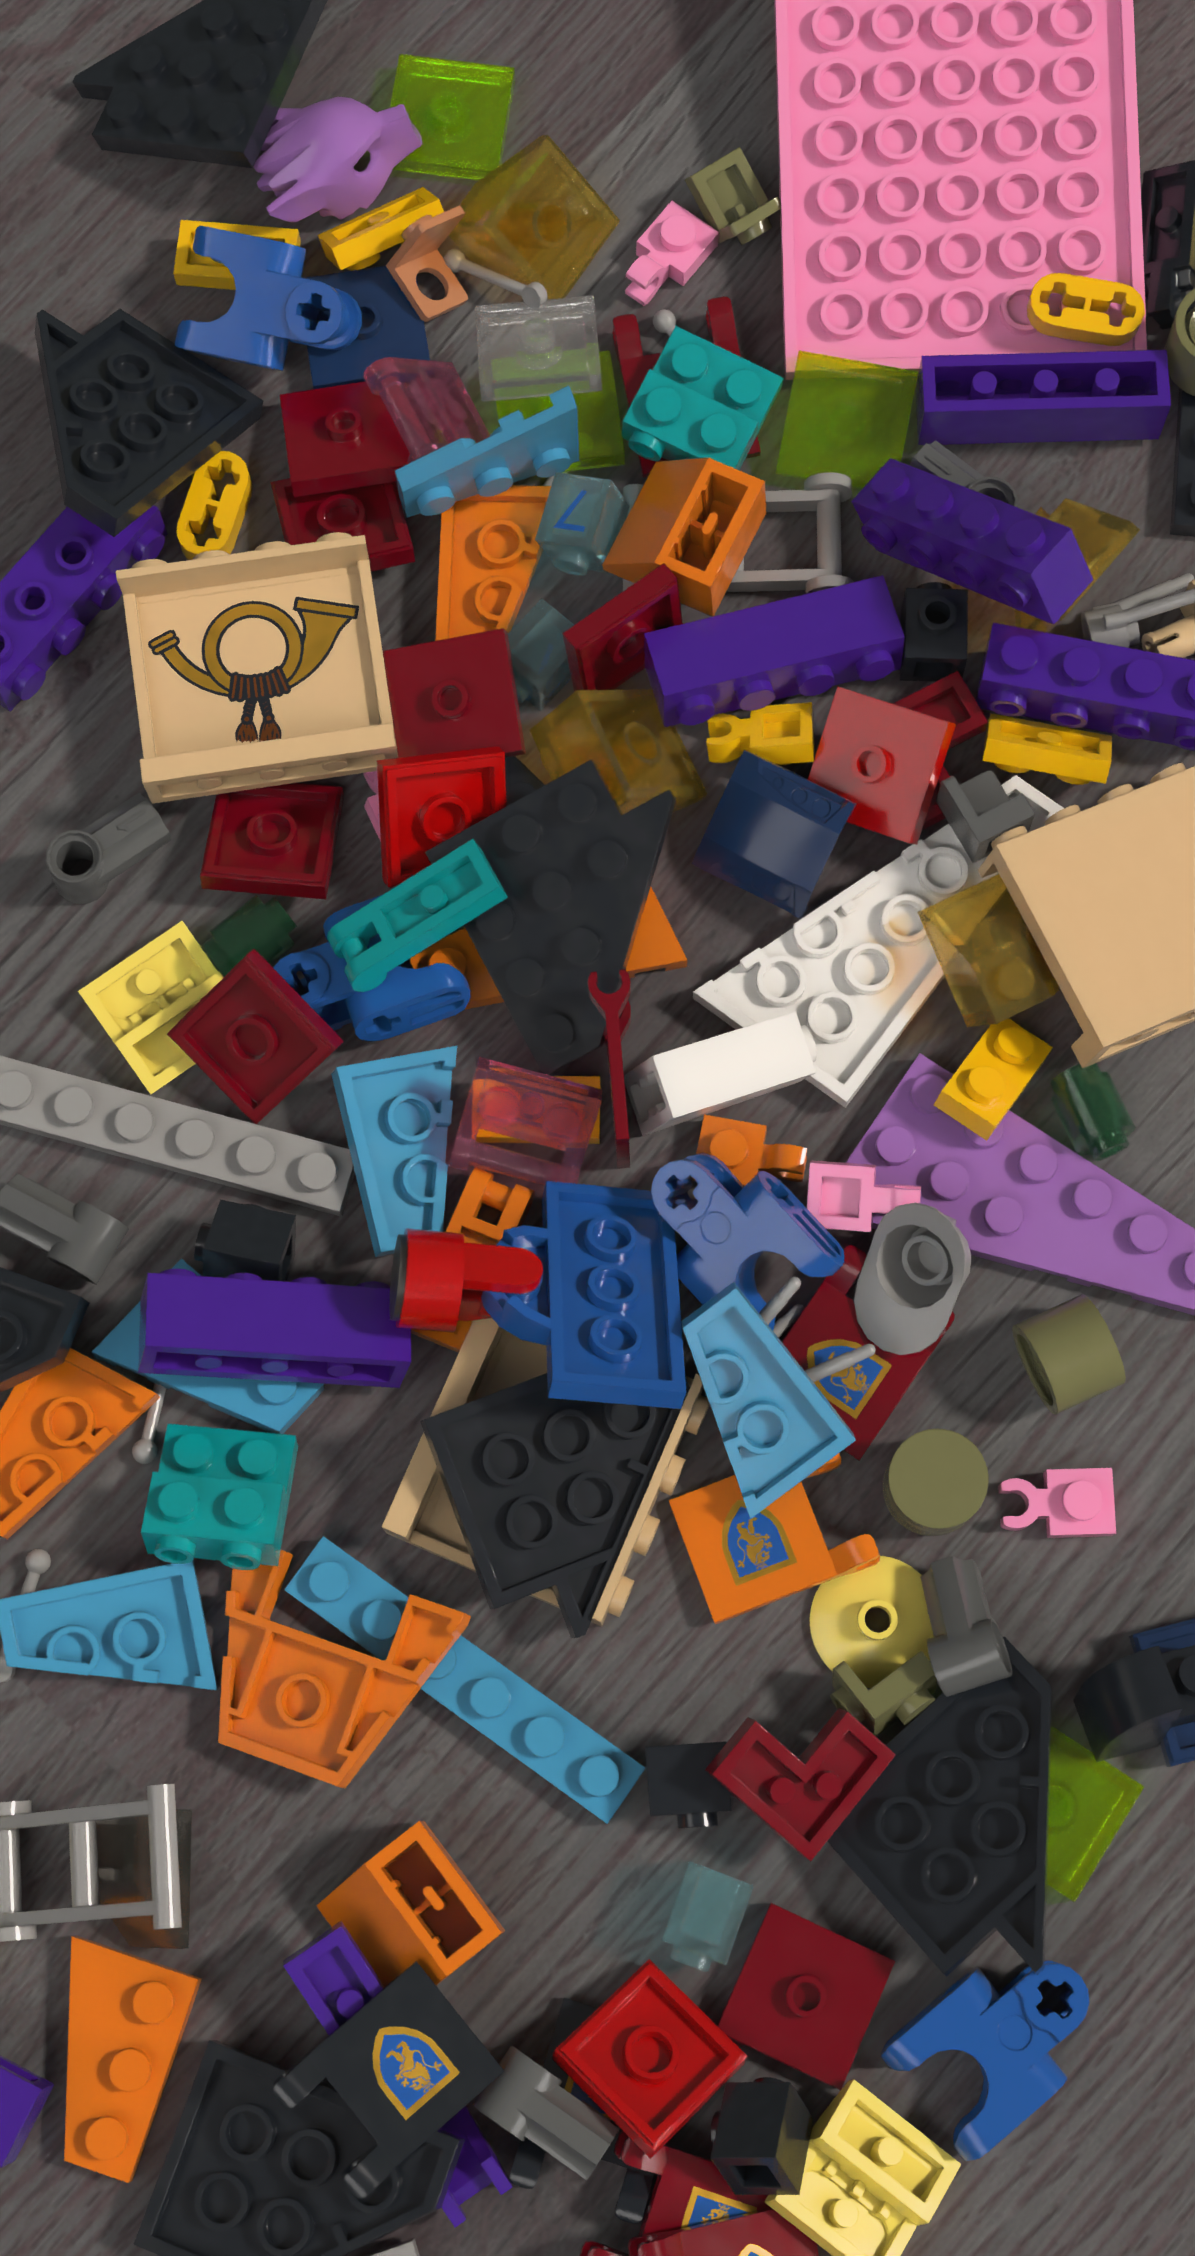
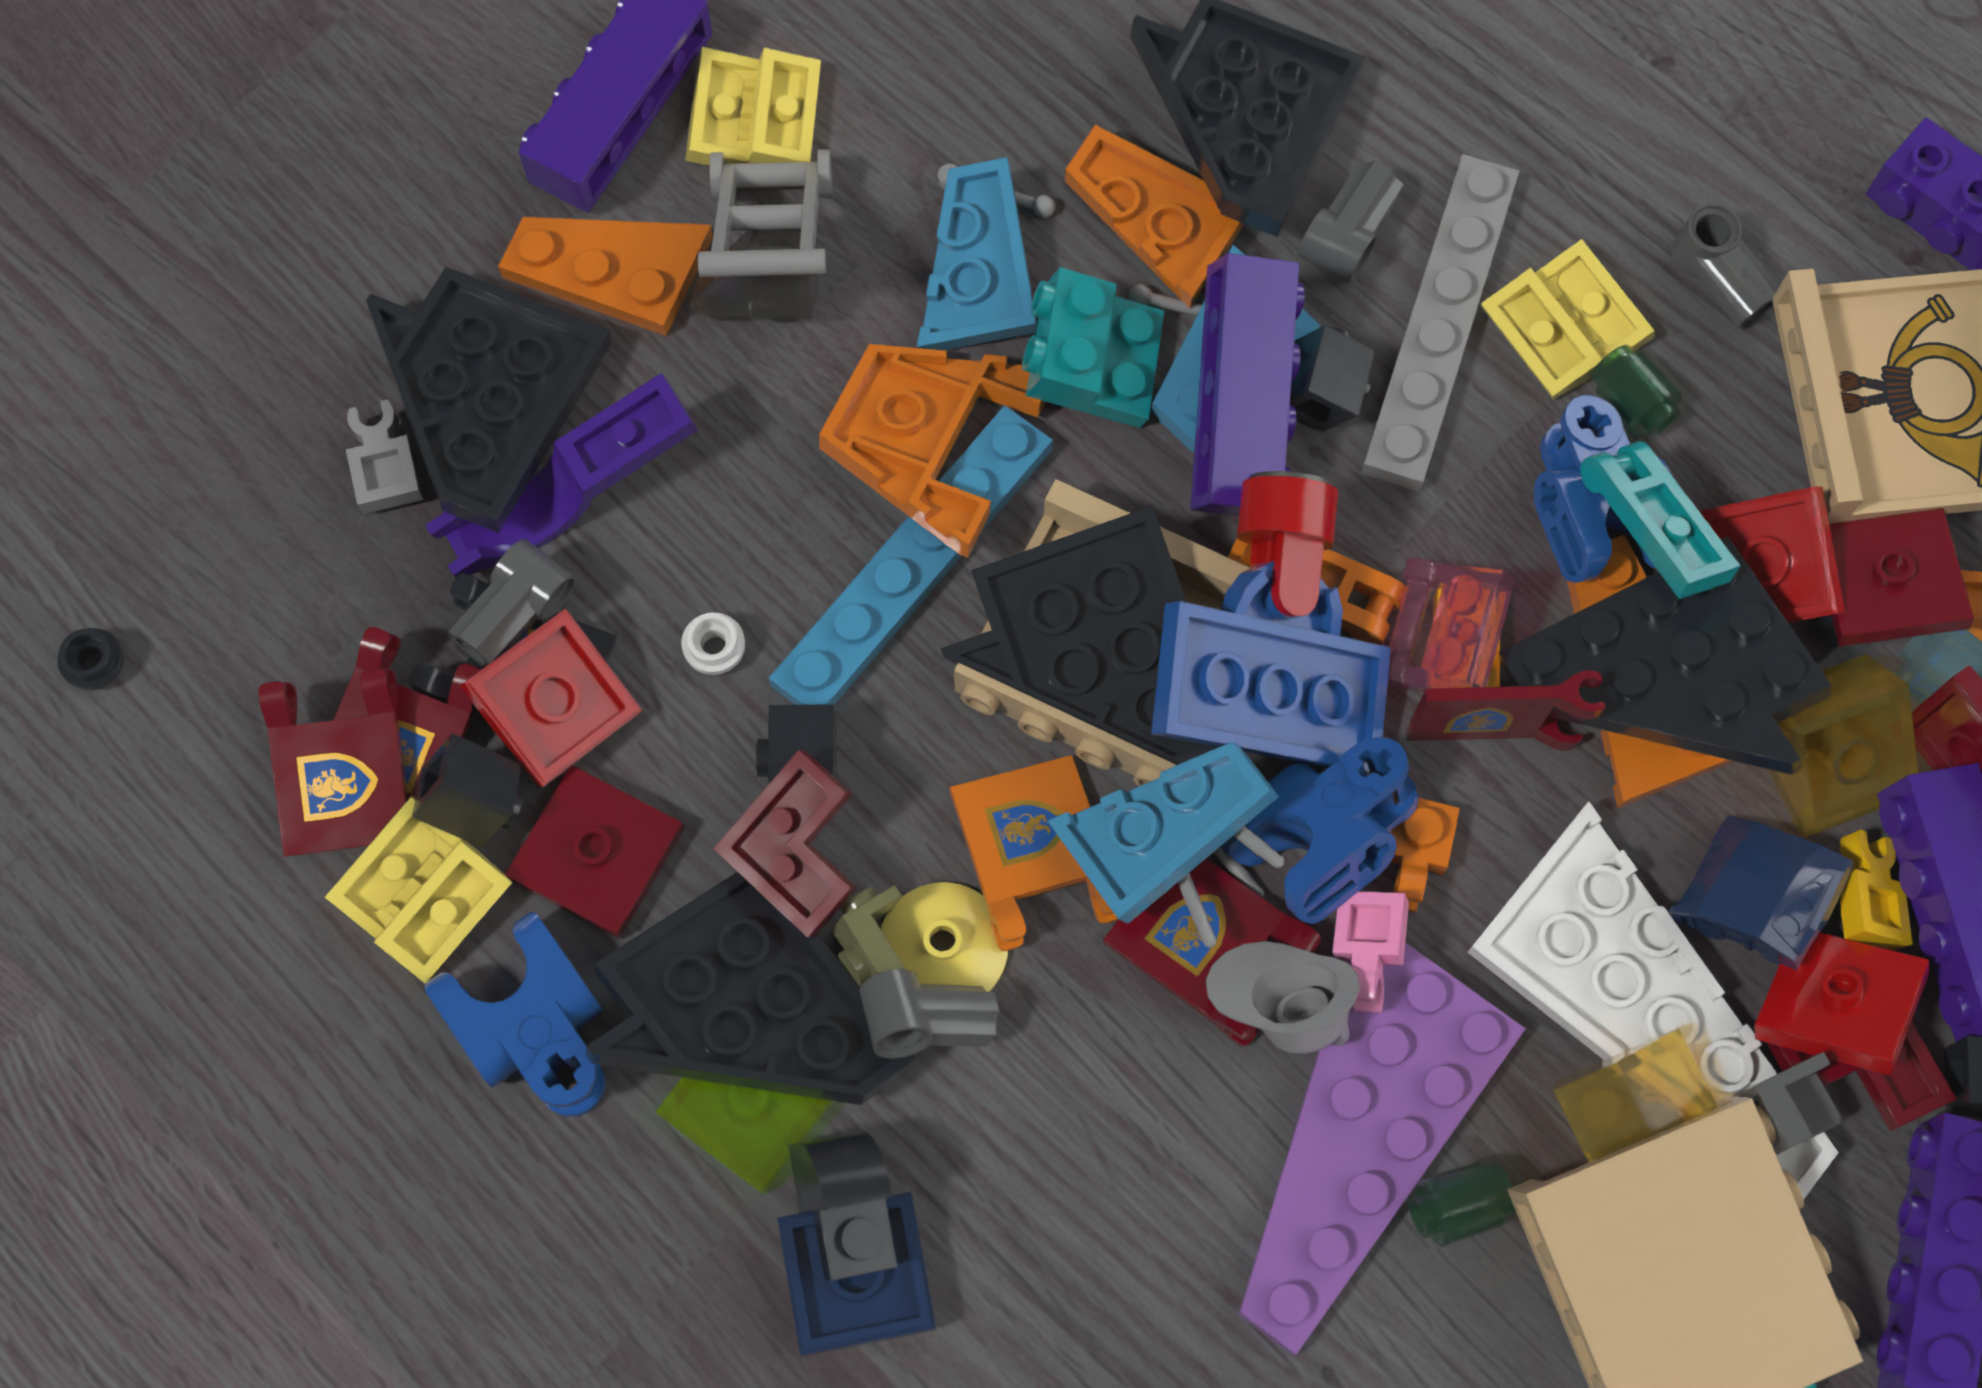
camera: 90 degrees right, 5 degrees down
(255, 1036) = (1536, 383): dark red plate -> none
(273, 840) = (1739, 415): dark red plate -> none
(397, 1139) = (1437, 515): dark azure wing -> none
(401, 2070) = (564, 470): black flag -> none
(412, 1908) = (702, 503): orange slope -> none
(546, 1888) = (713, 626): none -> white plate
(706, 1916) = (676, 760): clear light blue brick -> none
(720, 1072) = (1502, 816): white slope -> none
(935, 1482) = (1074, 1004): olive piece -> none
(992, 1077) = (1499, 1099): yellow plate -> none
(1030, 745) = (1870, 1191): yellow plate -> none
(1069, 1354) = (1200, 1148): olive piece -> none
(1071, 1502) = (1049, 1148): bright pink plate -> none

